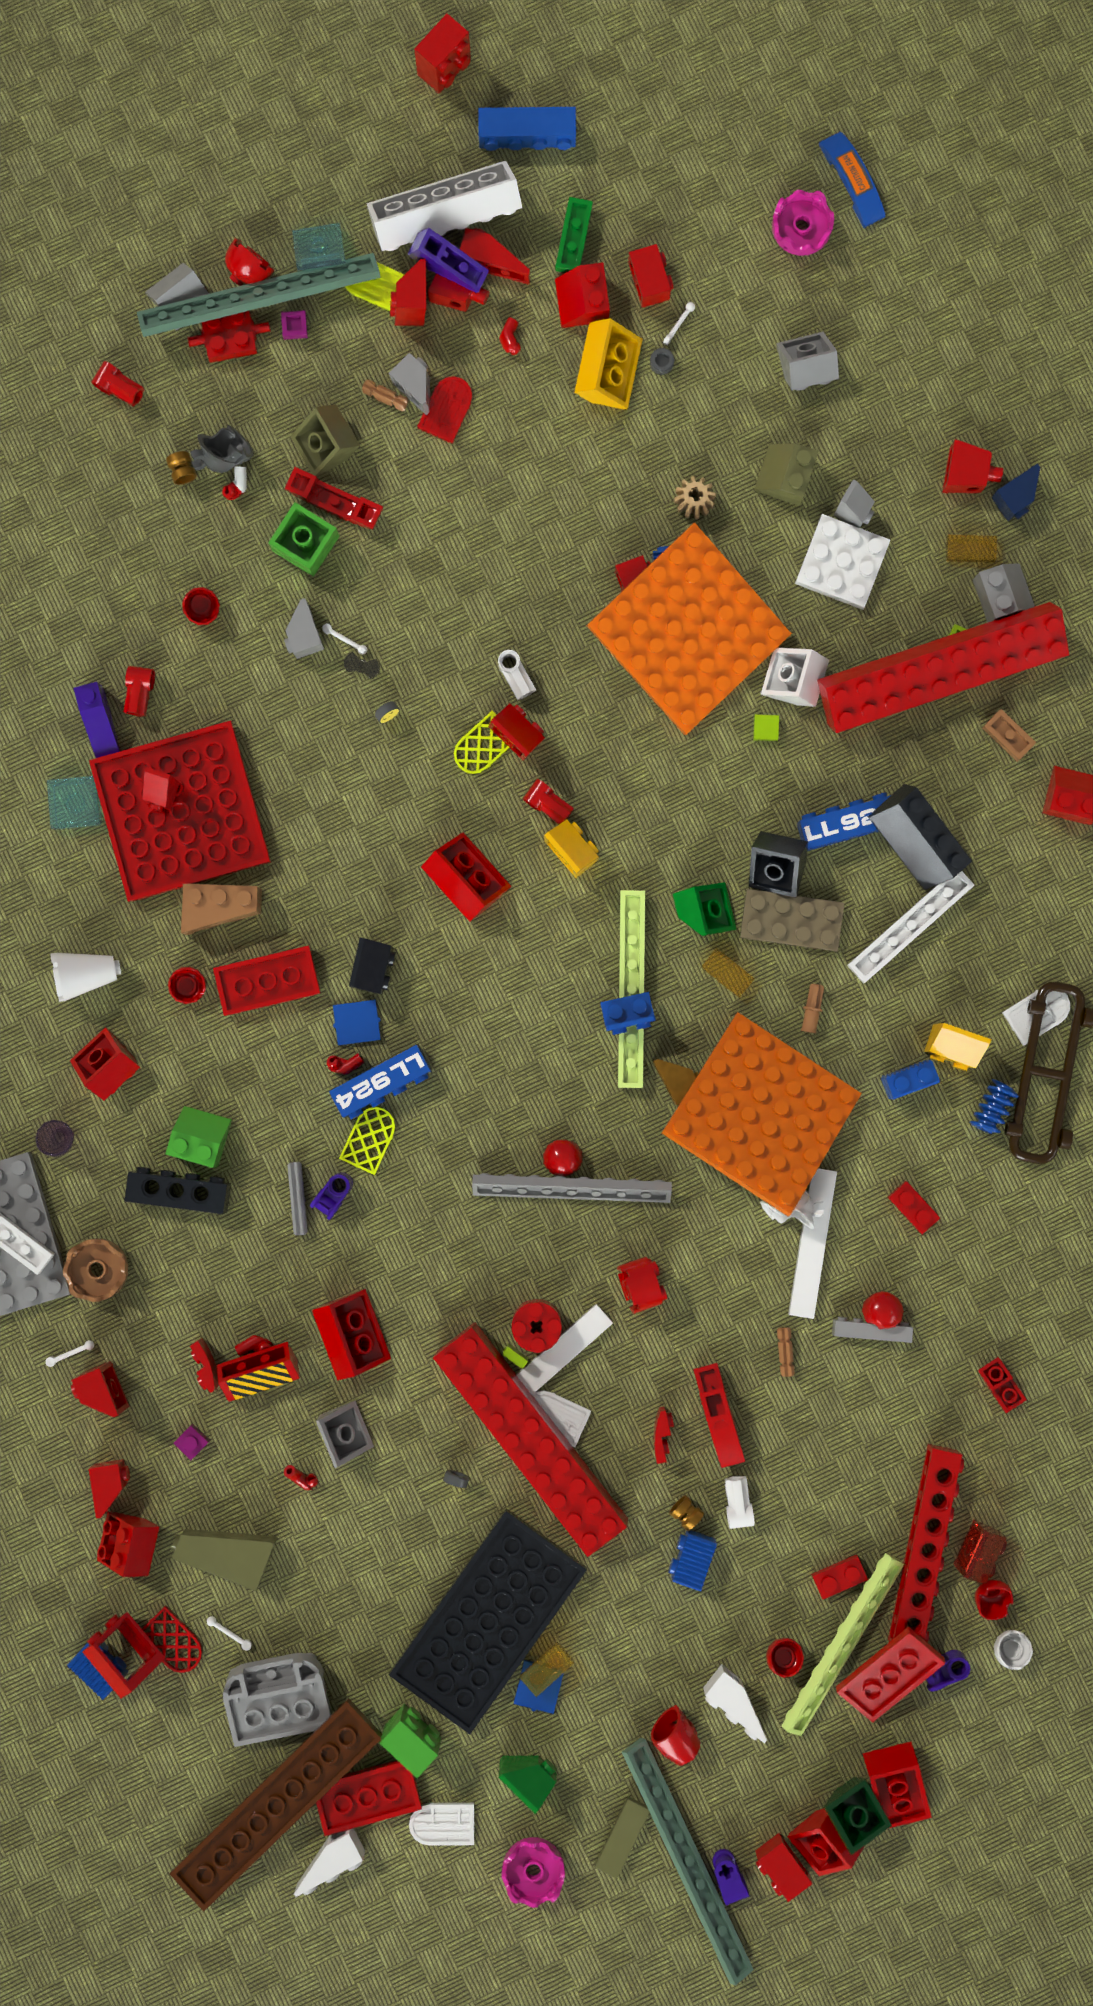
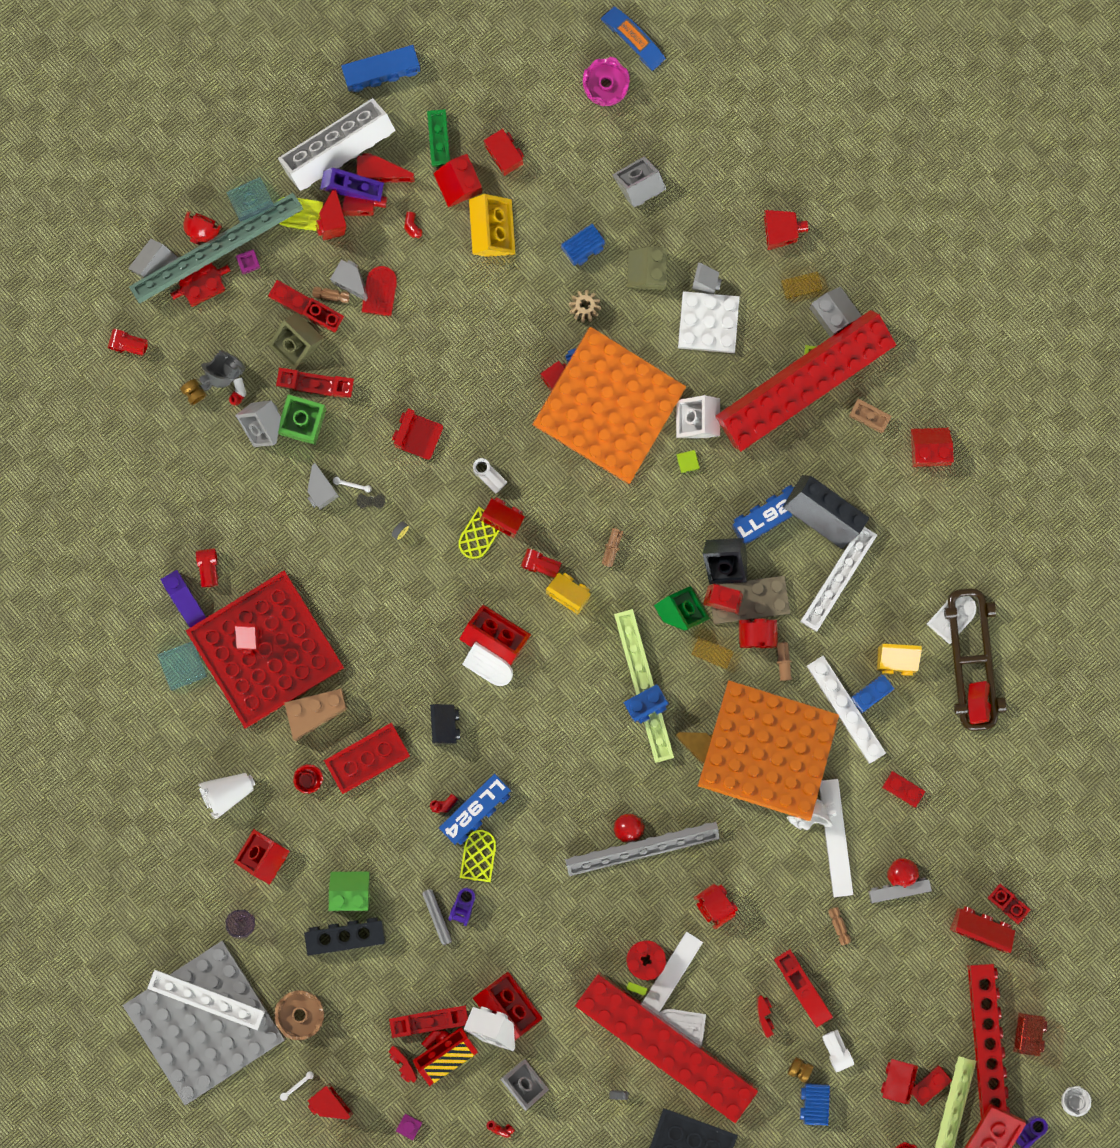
camera: 20 degrees left, 5 degrees down
(200, 606) = (237, 491): red hair -> none
(251, 528) = (260, 423): none -> light grey slope
(251, 1322) = (428, 1021): none -> red slope
(322, 1355) = (491, 1028): none -> white slope
(349, 400) = (306, 307): none -> red slope
(356, 1022) = (443, 770): blue piece -> none
(441, 599) = (417, 435): none -> red bracket
(443, 53) = (303, 33): red brick -> none
(447, 909) = (488, 665): none -> white window
(642, 807) = (612, 547): none -> medium nougat axle
(662, 361) = (530, 211): dark grey tile -> none
(690, 306) = (540, 165): white hinge -> none
(715, 420) = (583, 245): none -> blue brick
(761, 909) = (723, 598): none -> red torso
(791, 965) = (758, 633): none -> red brick
(803, 1562) = (899, 1081): none -> red brick
(872, 1089) = (846, 709): none -> white plate
(962, 1409) = (983, 929): none -> red slope
(993, 1599) = (1050, 1067): red hair -> none
(994, 1108) = (941, 696): blue piece -> none
(1018, 494) = (824, 236): dark blue slope -> none
(1038, 1128) = (978, 703): none -> red slope

